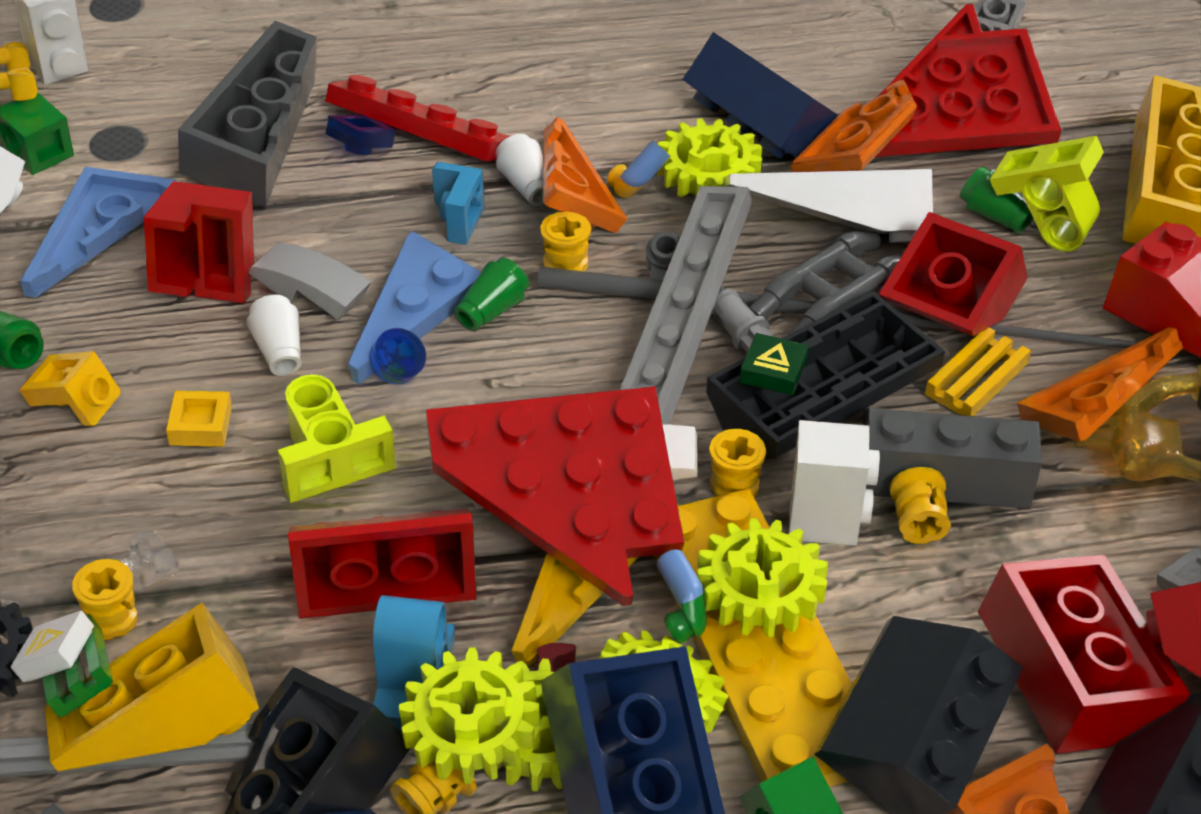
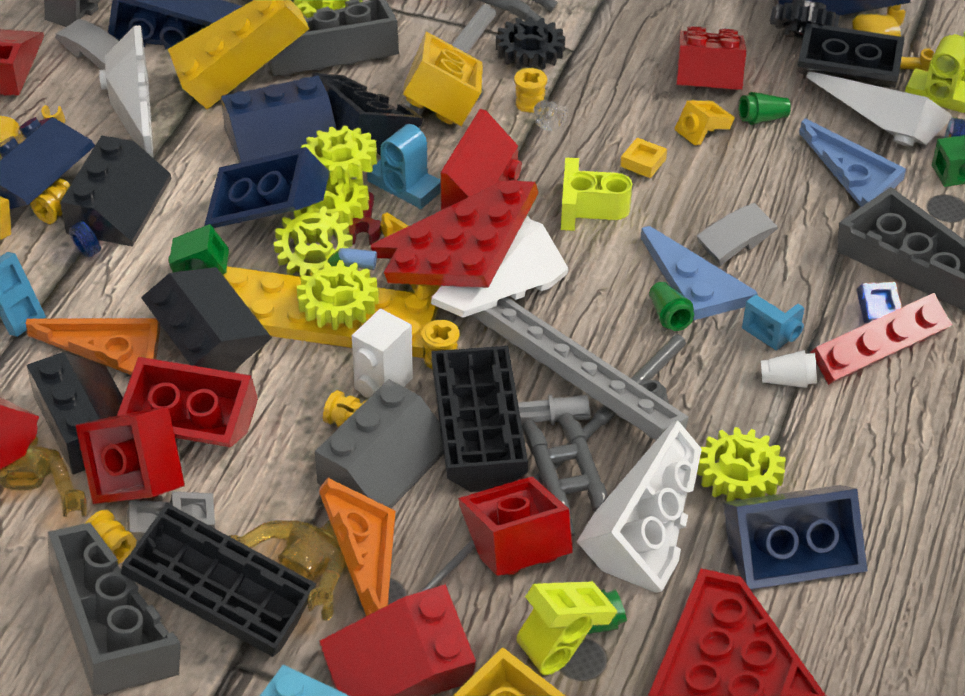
camera: 120 degrees right, 0 degrees up
(52, 647) = (500, 54): white tile -> none
(99, 668) = (488, 64): green tile -> none
(200, 242) = (789, 181): red plate -> none
(276, 331) = (694, 206): white cone -> none
(397, 356) = (641, 246): clear blue tile -> none
(565, 241) = (685, 352): yellow bush -> none
(574, 183) = (748, 379): orange wing -> none
(631, 180) = (748, 419): medium blue arm -> none
(774, 364) = (489, 370): dark green tile -> none
(858, 133) = (697, 538): orange tile -> none
(963, 360) = (430, 489): yellow tile -> none

